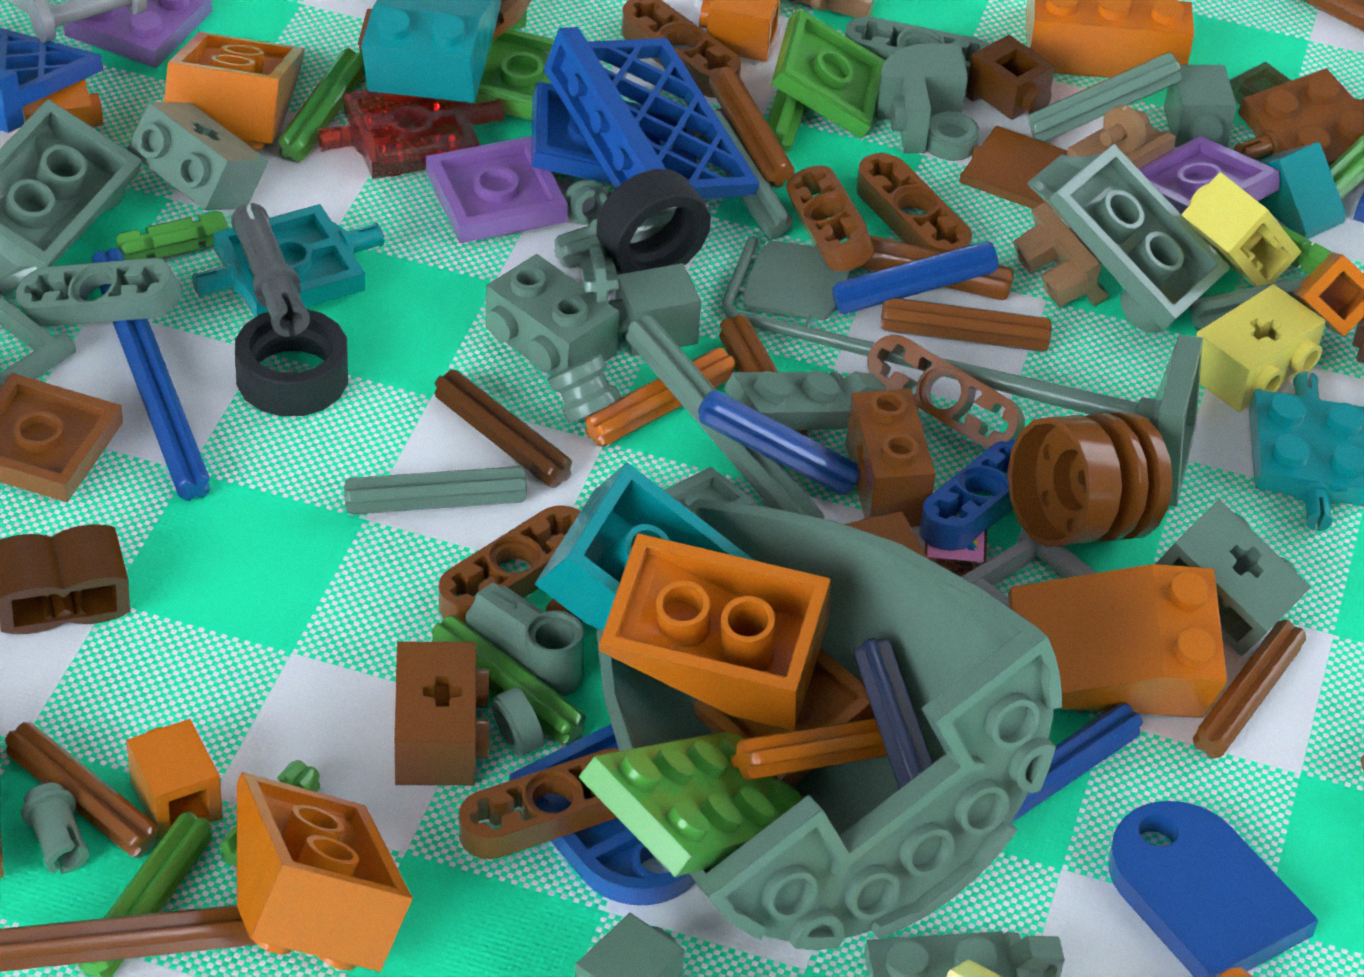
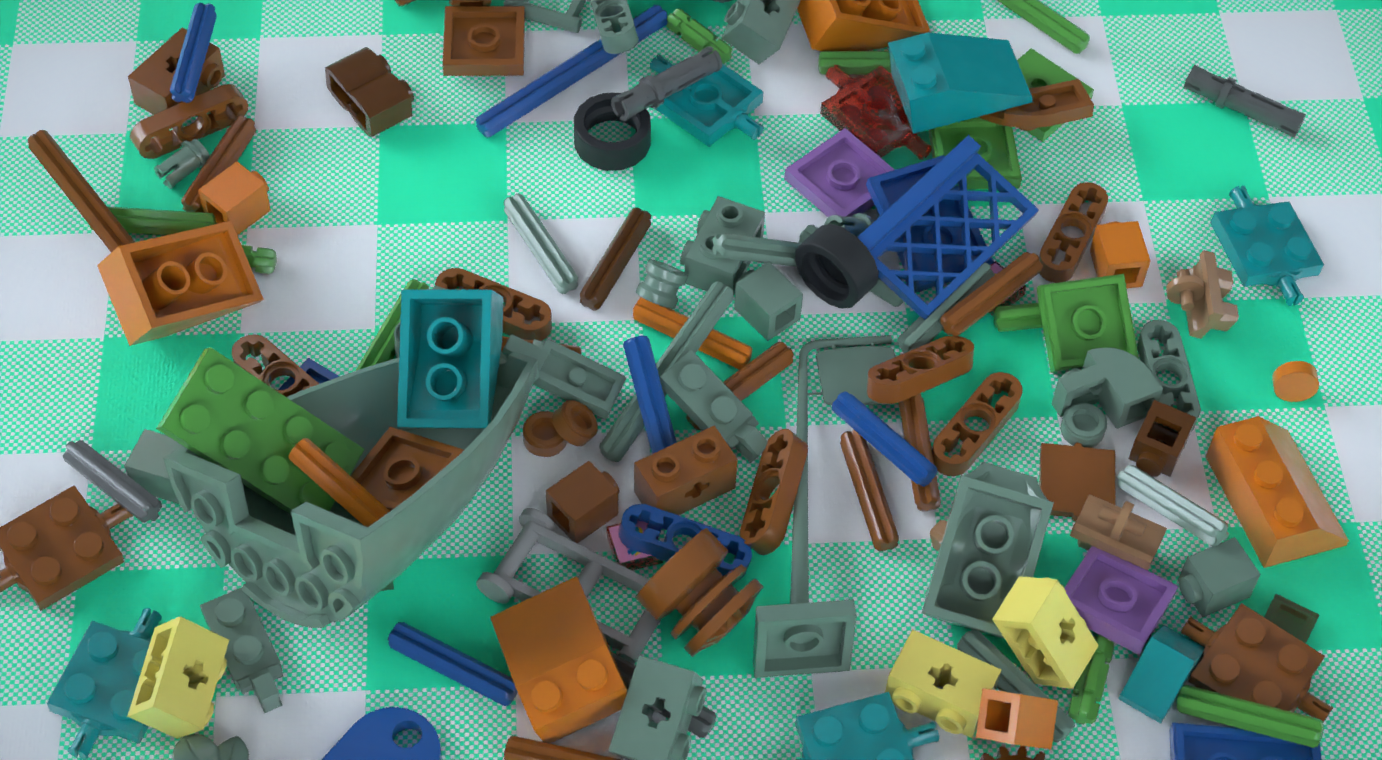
camera: 70 degrees right, 10 degrees up
(437, 713) = (338, 303): dark orange brick -> none
(517, 721) = (350, 346): sand green tile -> none
(720, 628) = (404, 402): orange slope -> none

